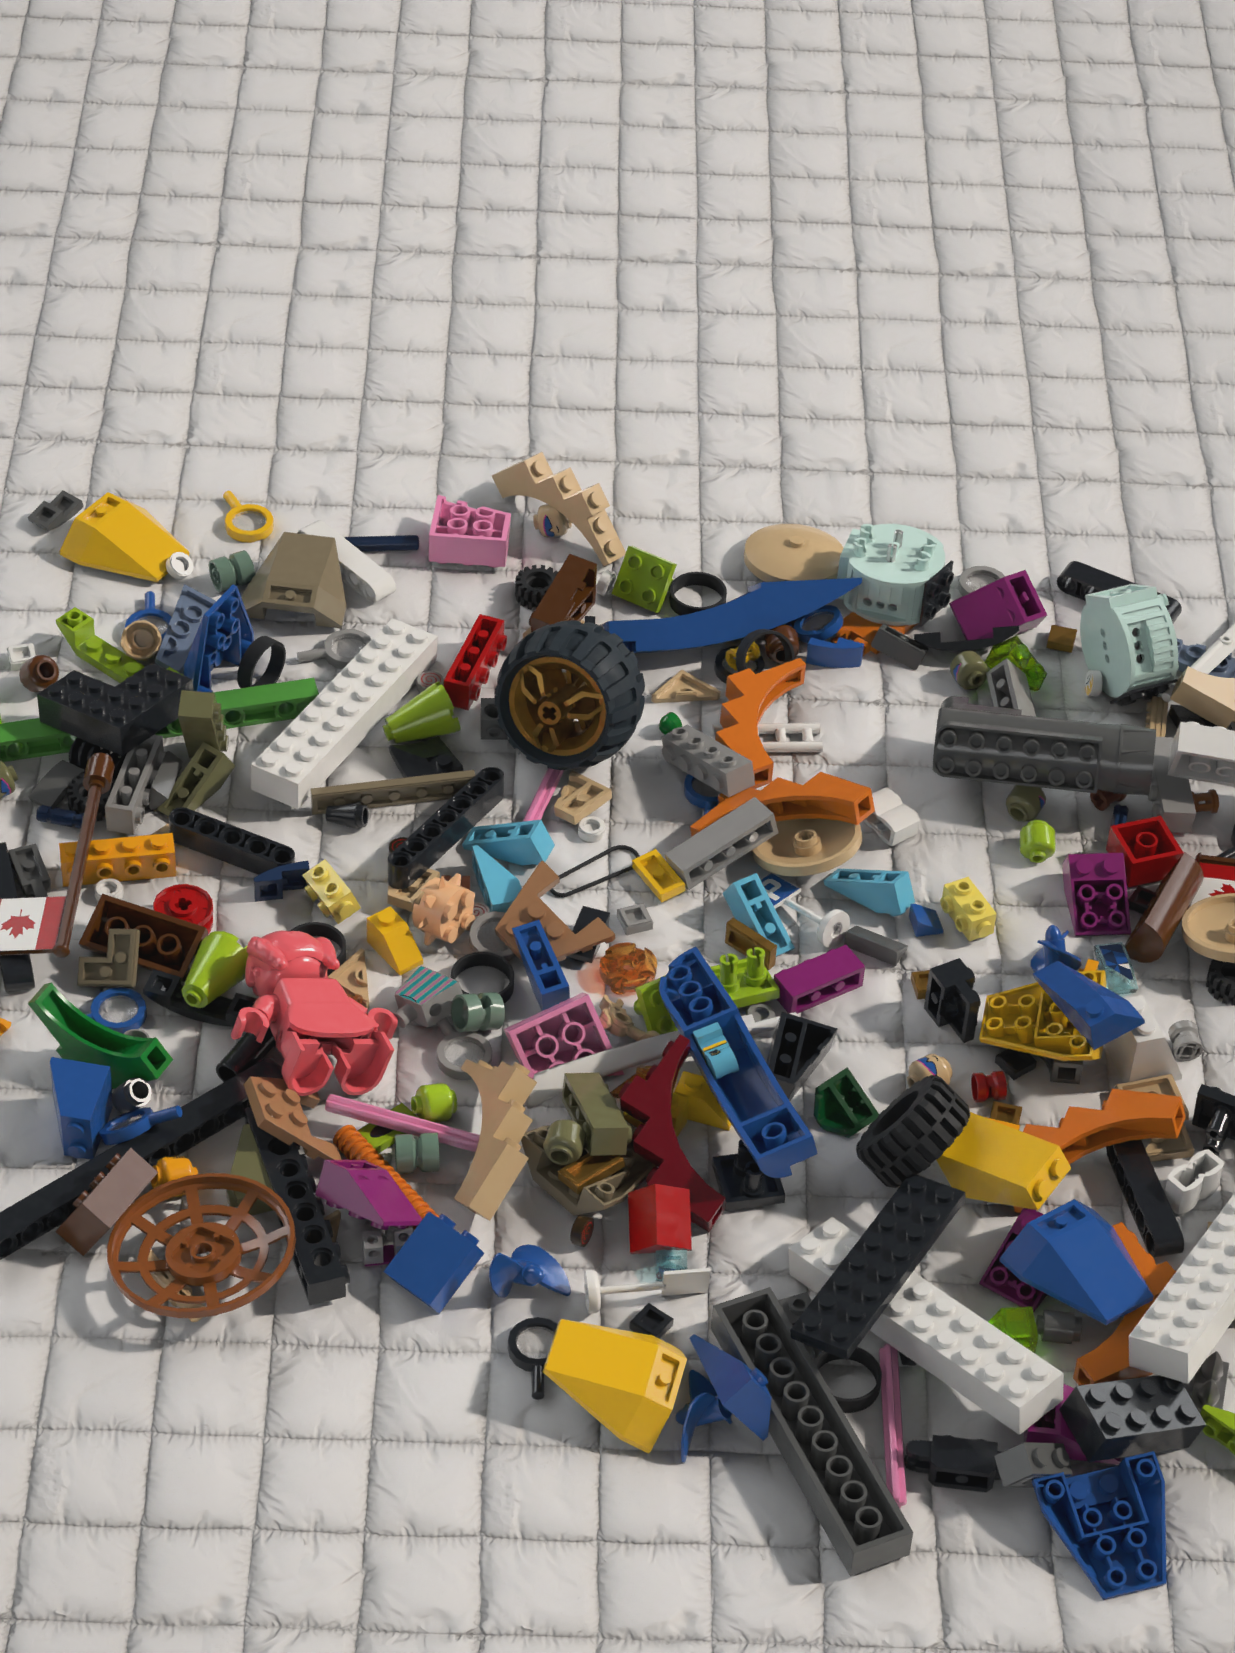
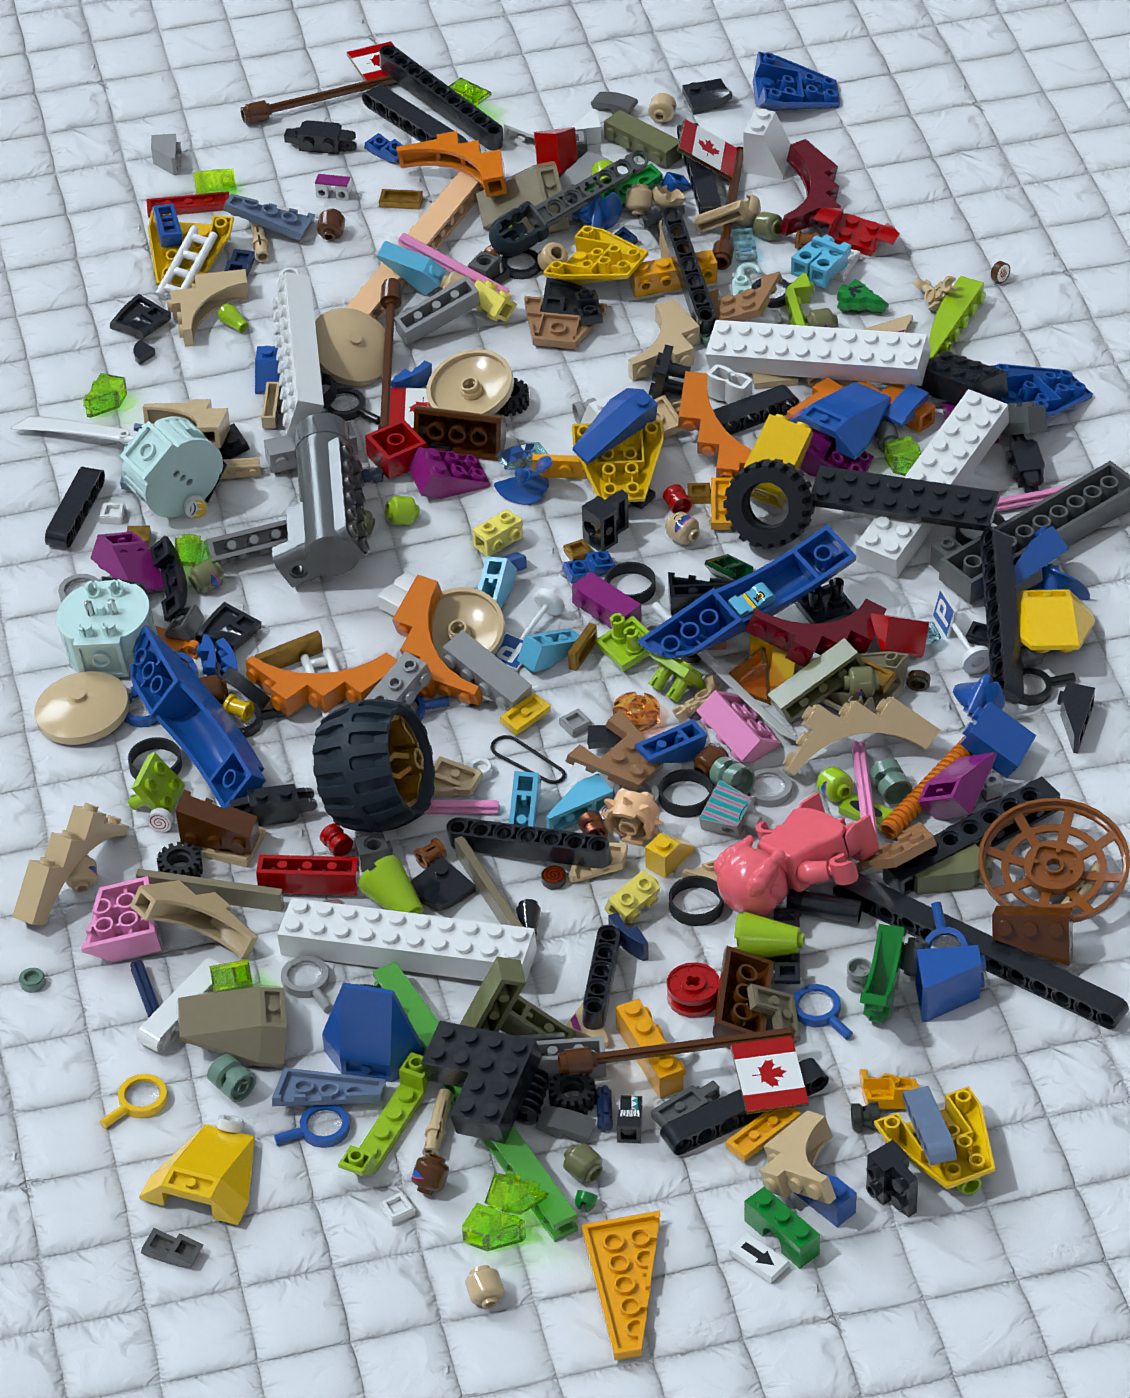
camera: 100 degrees left, 0 degrees up
(36, 829) = (630, 1118): none -> black leg
(141, 640) = (361, 1111): tan hair -> none
(172, 1168) = (978, 913): light orange head -> none
(352, 584) = (231, 975): none -> clear neon green slope
(431, 478) = (32, 980): none -> sand green tile
(455, 553) = (202, 912): none -> tan arch
(461, 1367) = (1076, 709): none -> black slope
(477, 759) = (430, 853): none -> dark orange bush
(491, 597) = (232, 892): none -> dark tan tile
(517, 1004) = (707, 757): none -> reddish brown head
(640, 1314) = (1002, 613): none -> black beam
(685, 688) = (281, 748): tan tile -> none
(823, 711) = (291, 651): none -> pearl gold tile
(829, 667) = (225, 656): none -> blue slope
(854, 992) = (634, 568): none -> black tyre
(875, 945) = (549, 578): dark grey slope -> none
(881, 676) = (229, 624): none -> black plate
(894, 984) = (595, 562): none -> blue slope
(1096, 1341) = (905, 404): none -> blue slope

